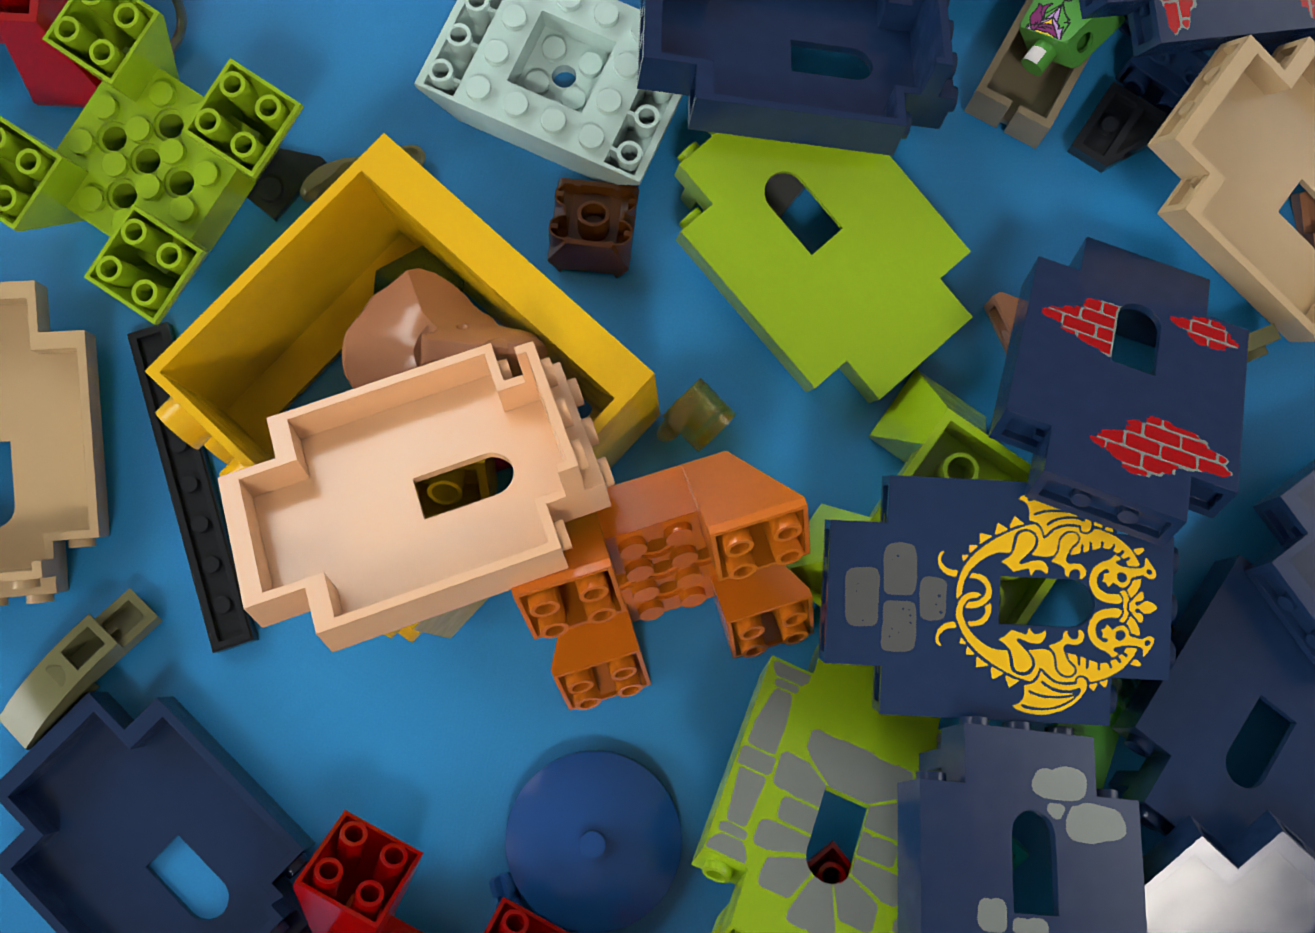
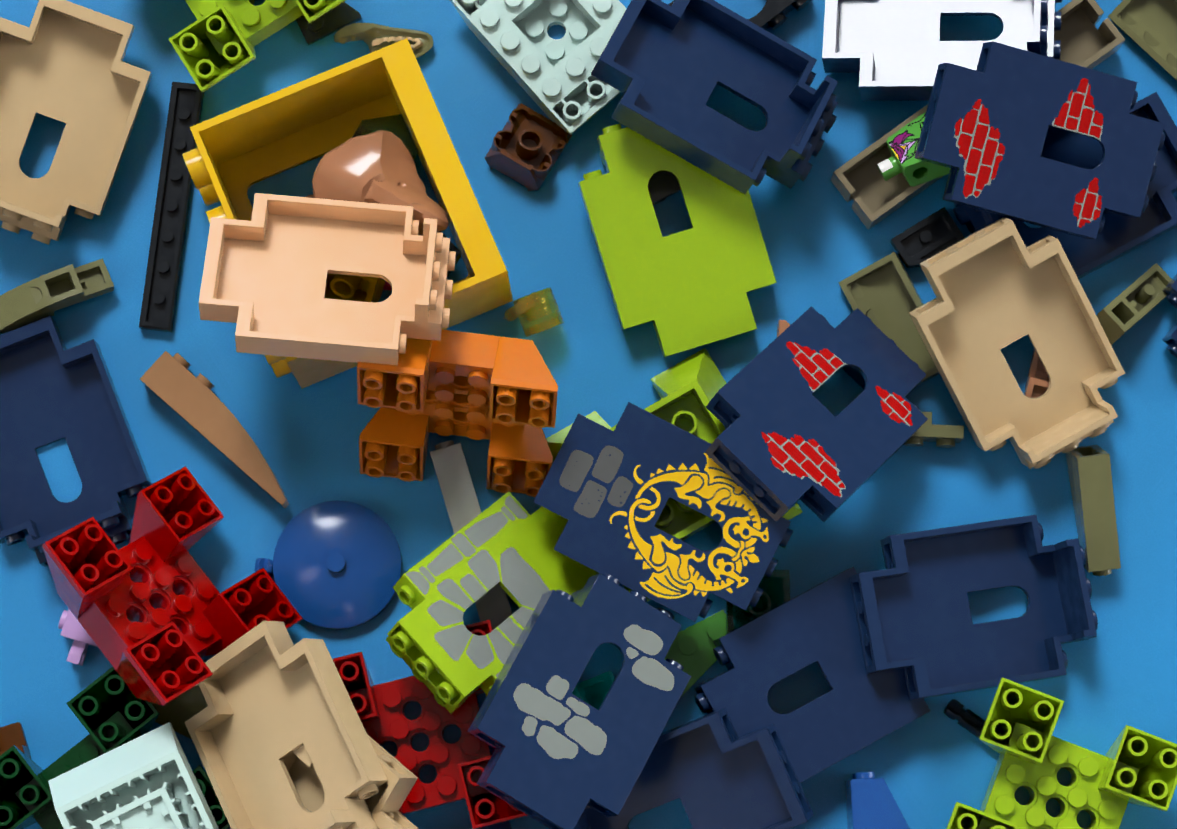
camera: 25 degrees right, 0 degrees up
(355, 729) = (203, 410): none -> medium nougat slope
(726, 707) = (462, 508): none -> light grey brick
(1108, 210) = (886, 297): none -> olive slope

